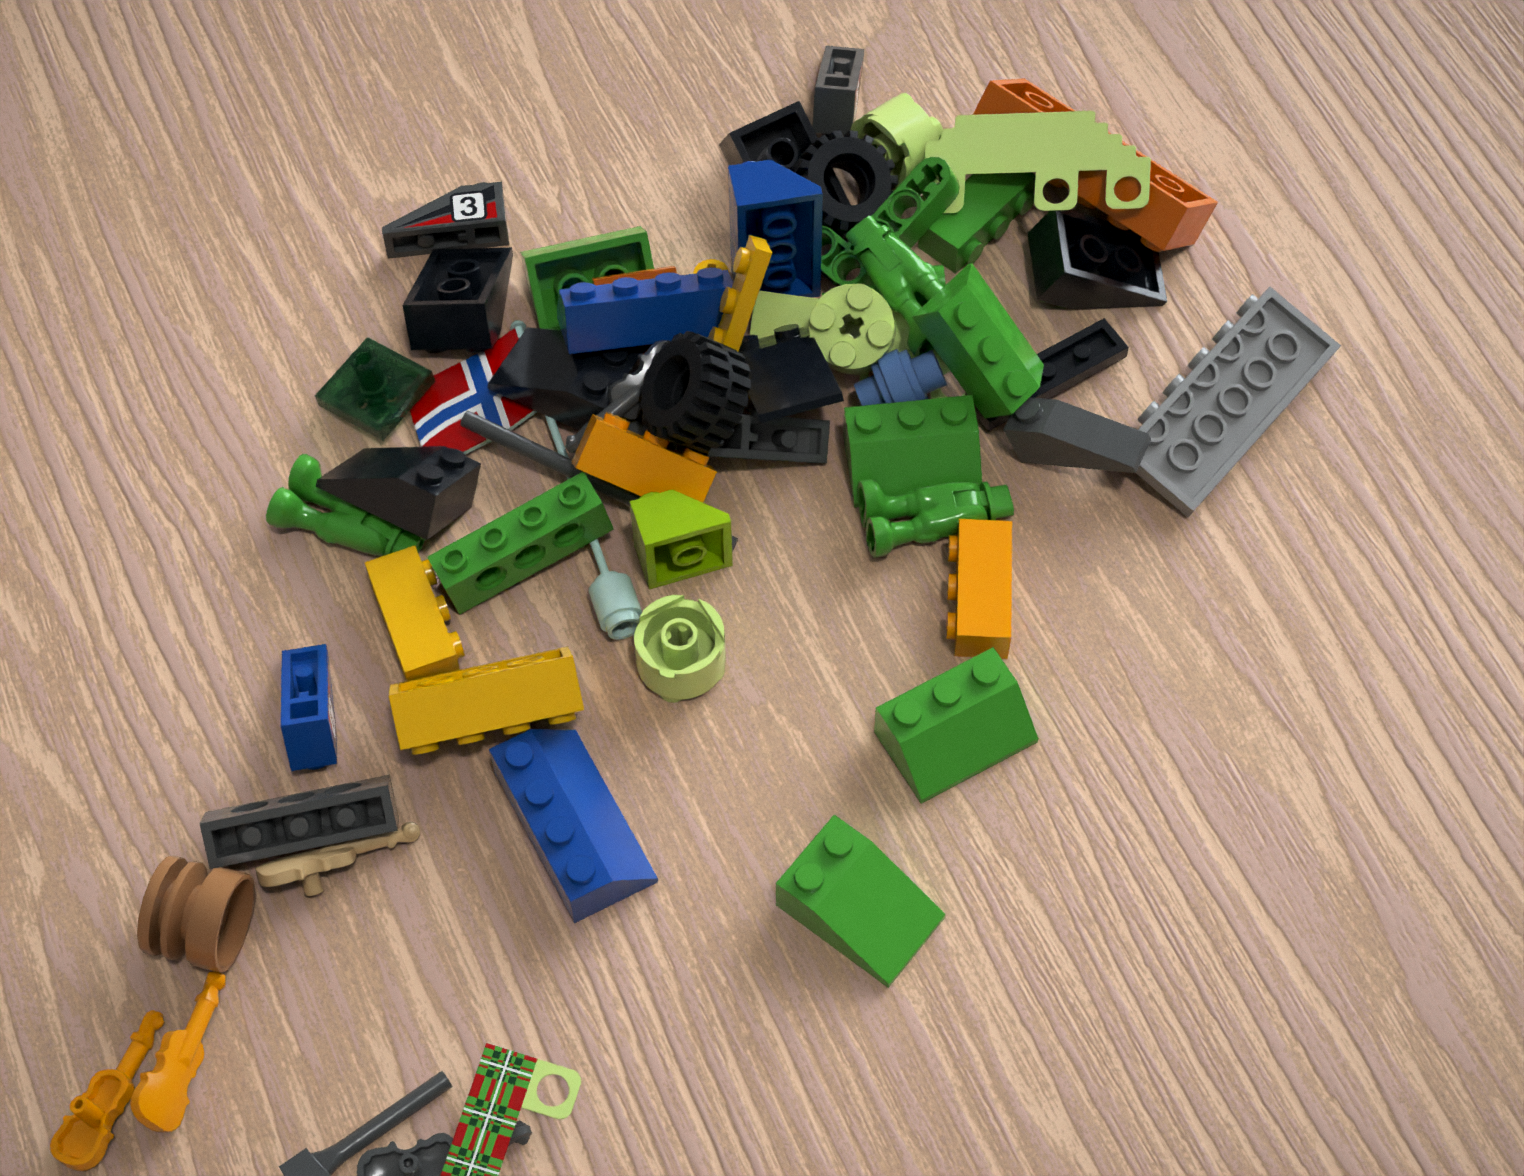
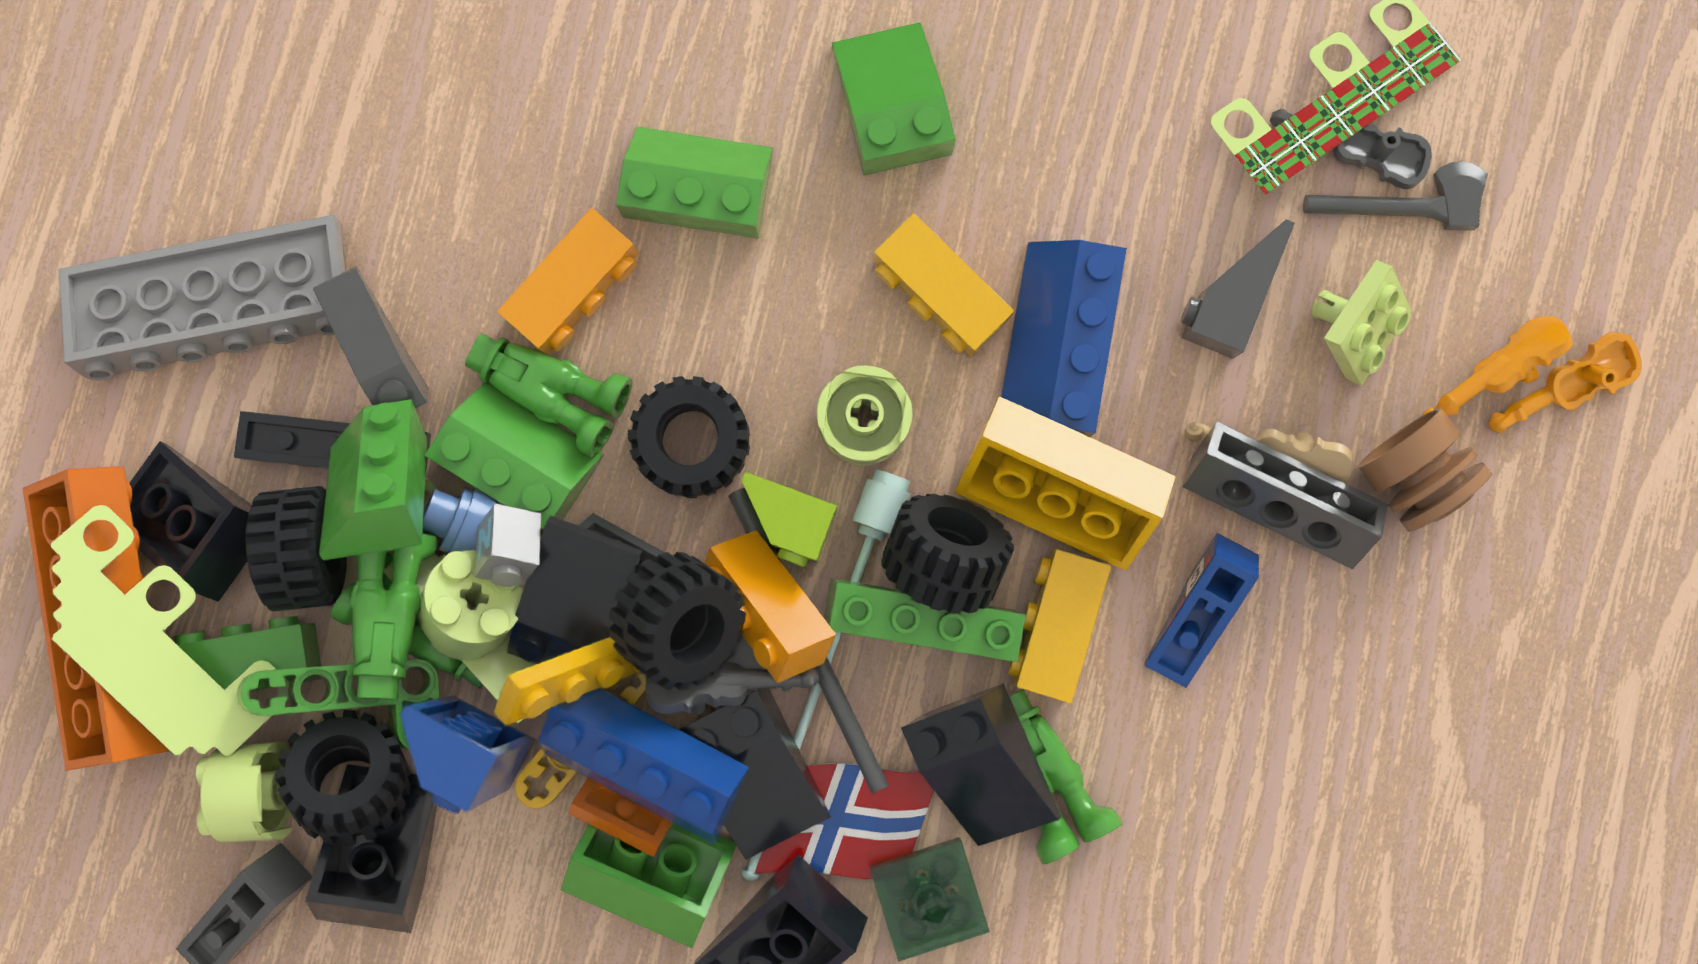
camera: 145 degrees left, 25 degrees up
(326, 997) = (1364, 322): none -> yellowish green plate
(454, 949) = (1230, 306): none -> dark grey slope
(549, 617) = (947, 553): none -> black tyre
(698, 786) = (941, 286): none -> yellow brick
(798, 515) = (661, 408): none -> black tyre
(855, 364) = (508, 545): none -> brick
(1012, 273) = (285, 550): none -> black tyre

